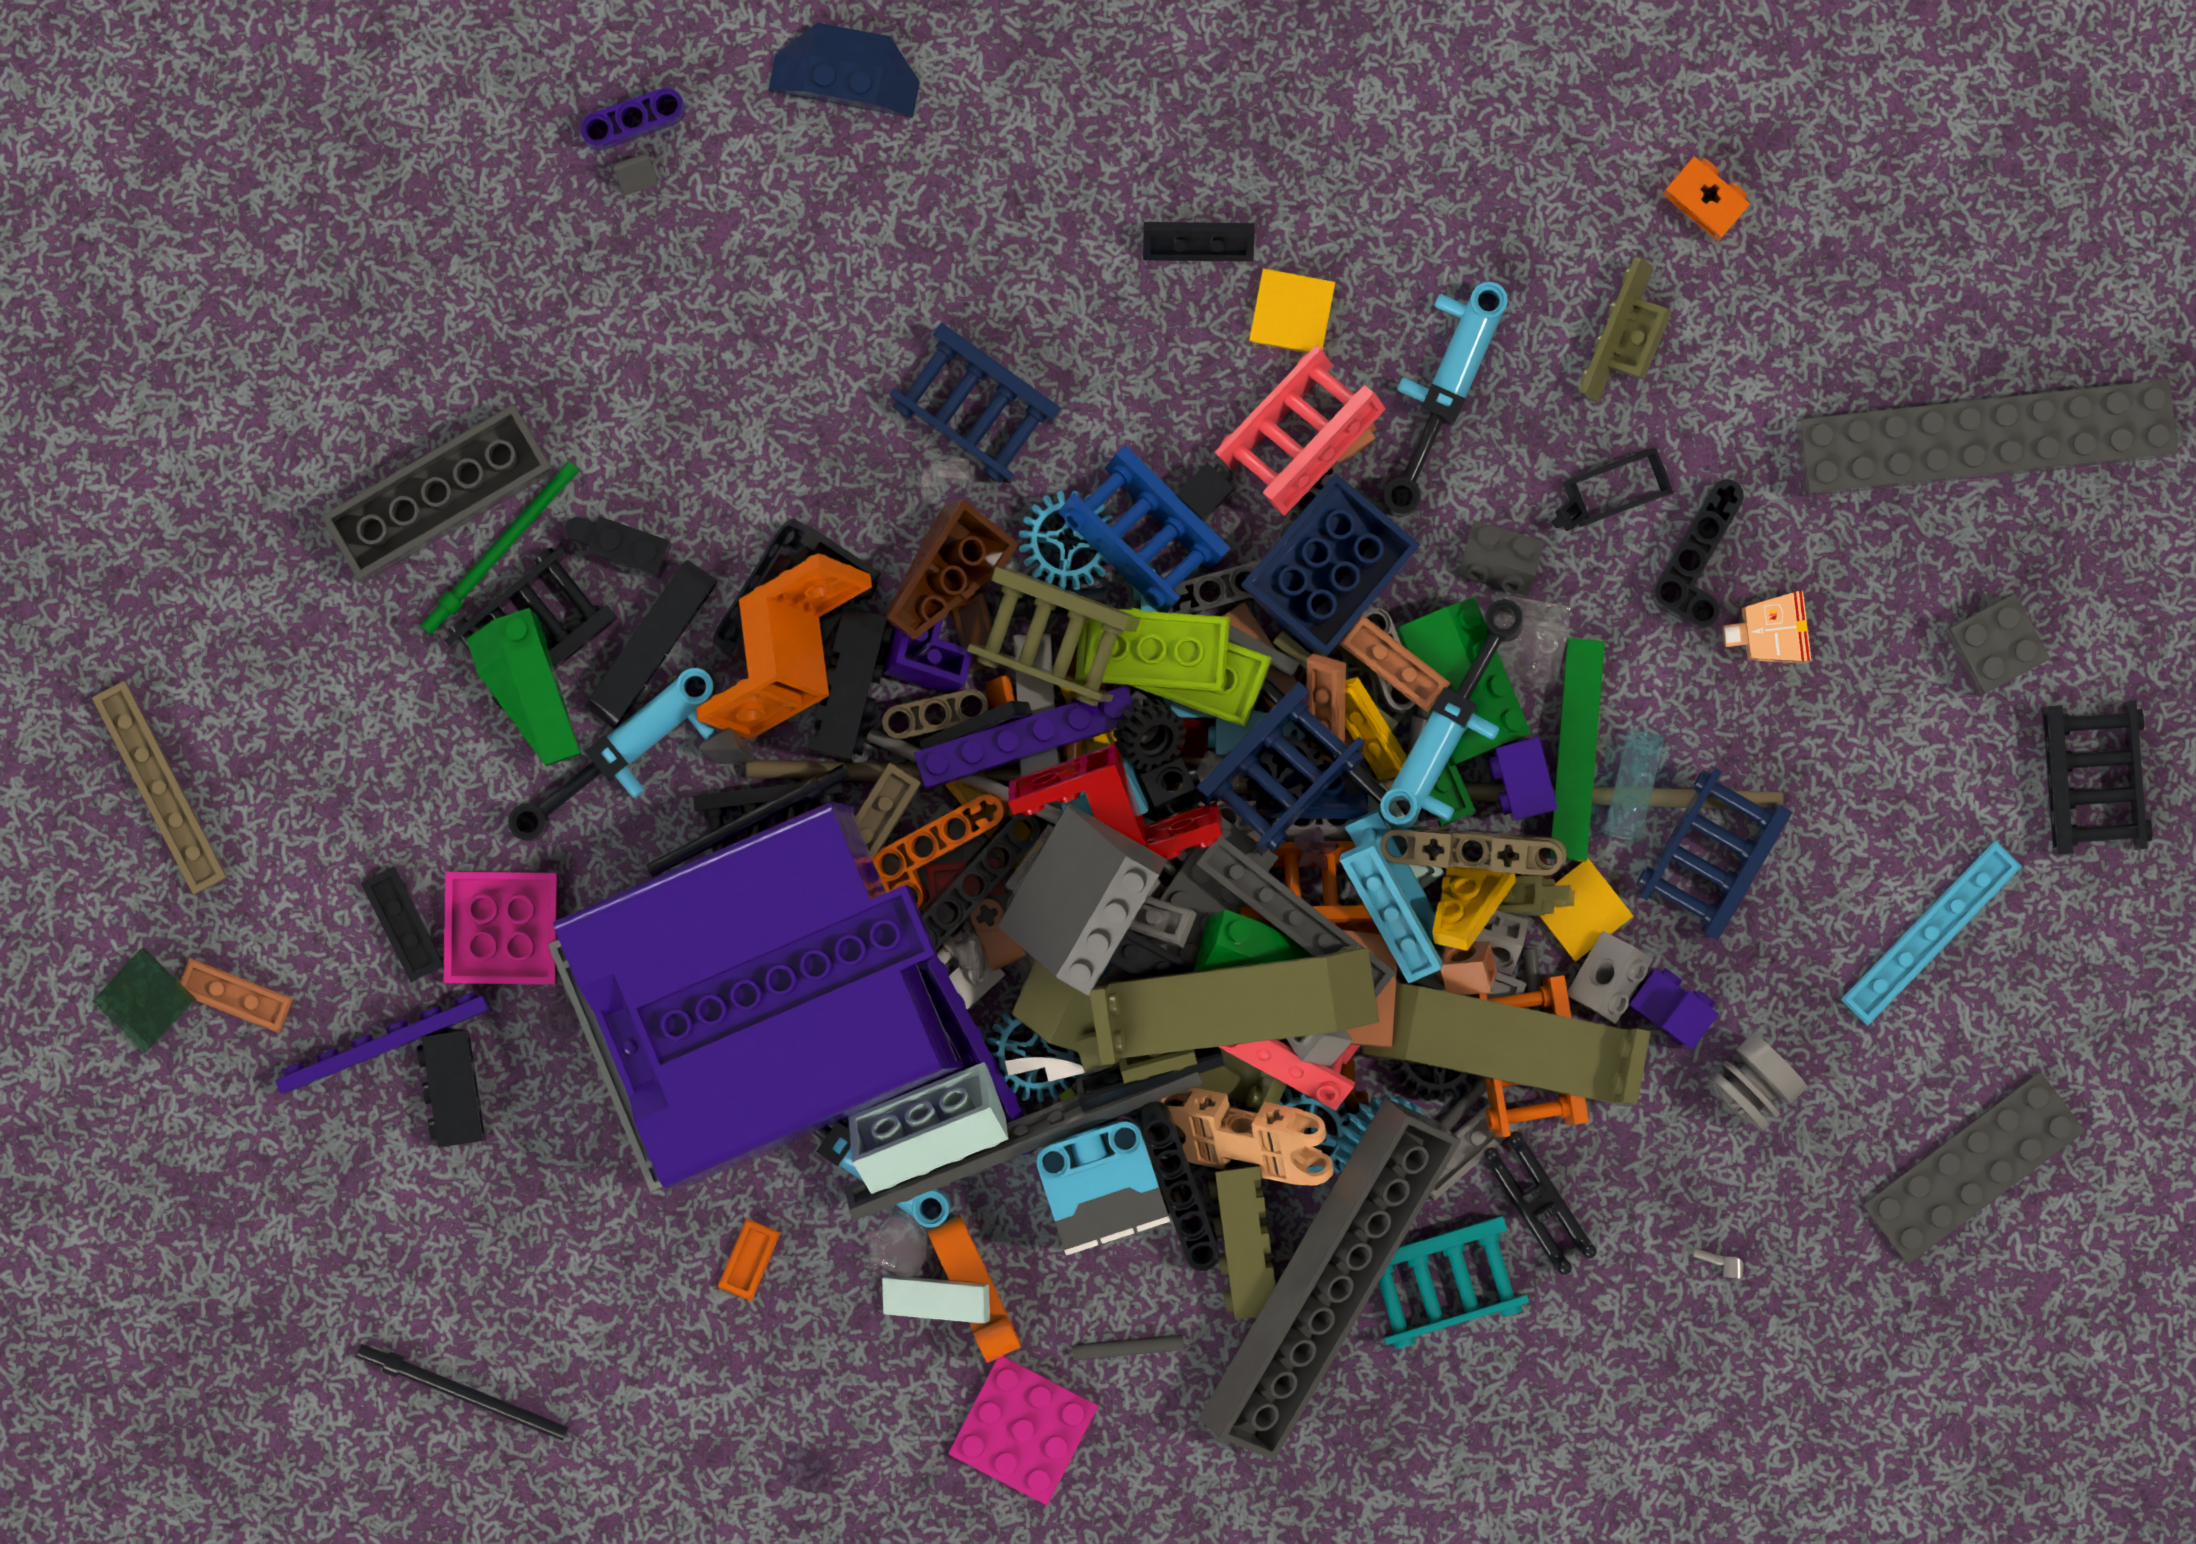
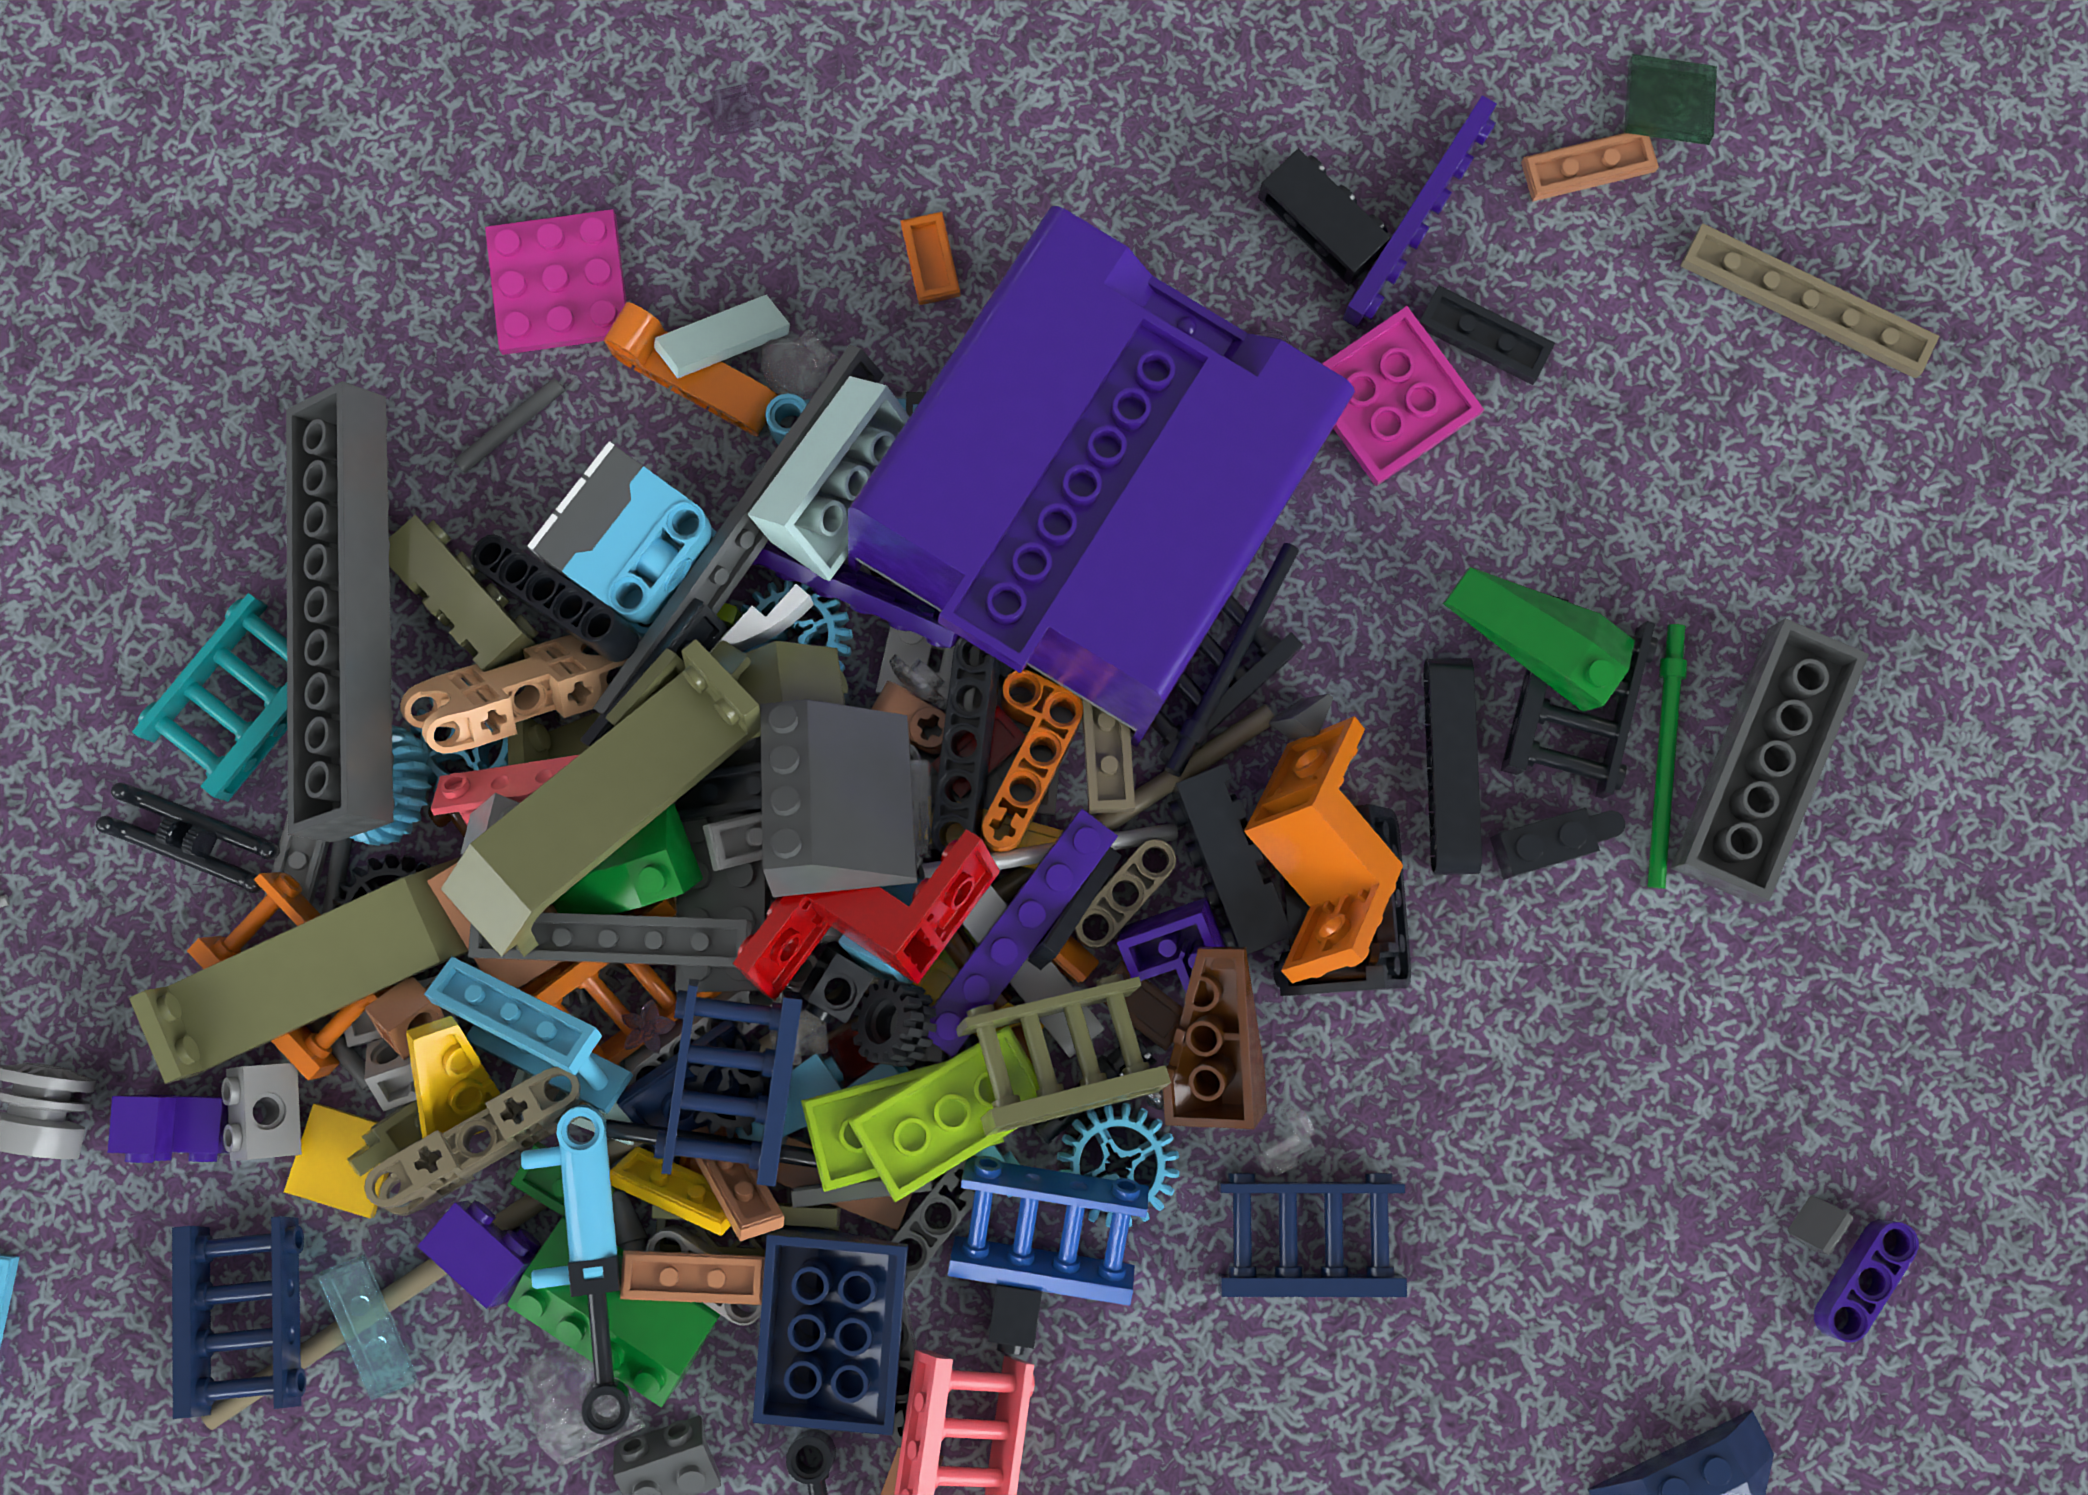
camera: 145 degrees right, 5 degrees down
(623, 746) = (1407, 638): medium azure piece -> none
(1577, 746) = (454, 1330): green tile -> none

